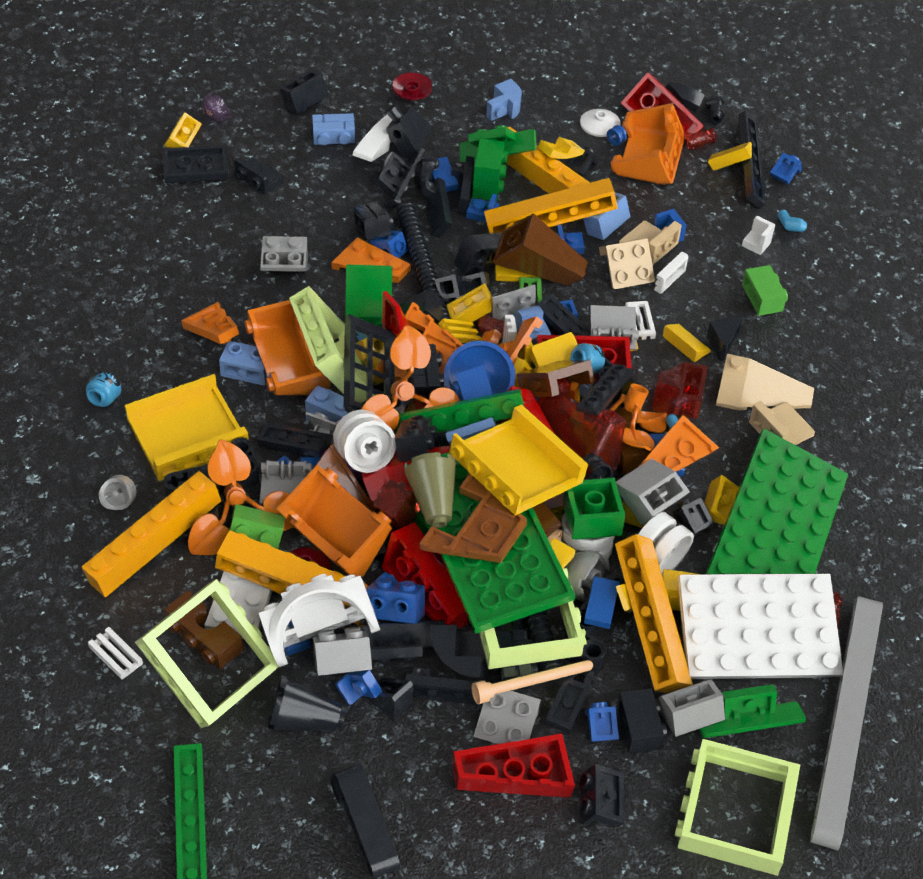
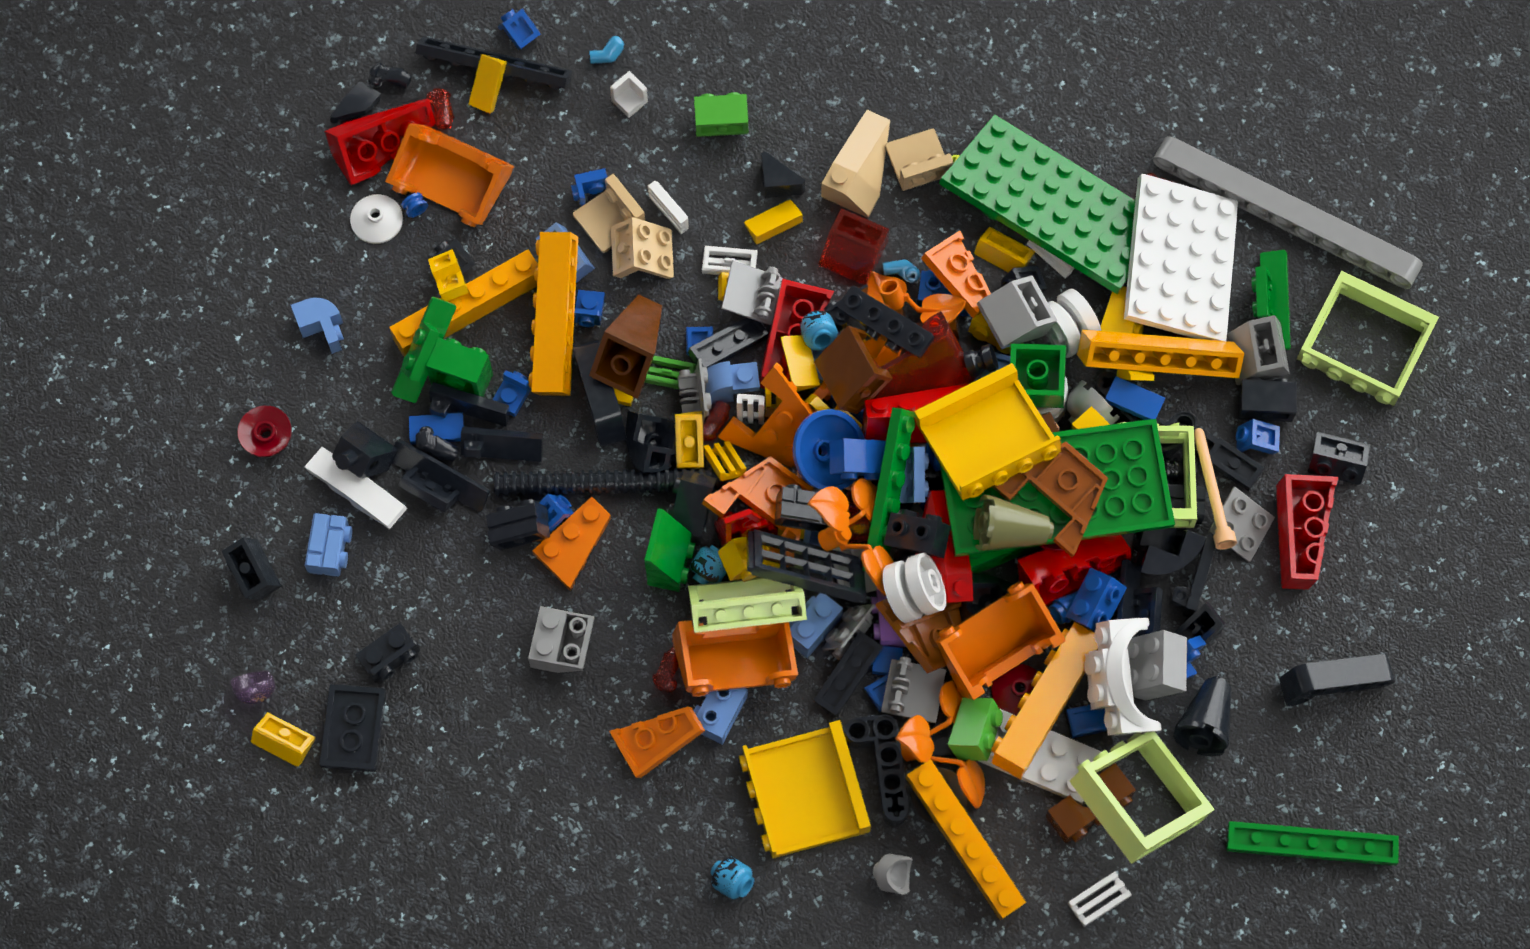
camera: 75 degrees left, 20 degrees up
(397, 503) = (996, 572): clear red brick -> none

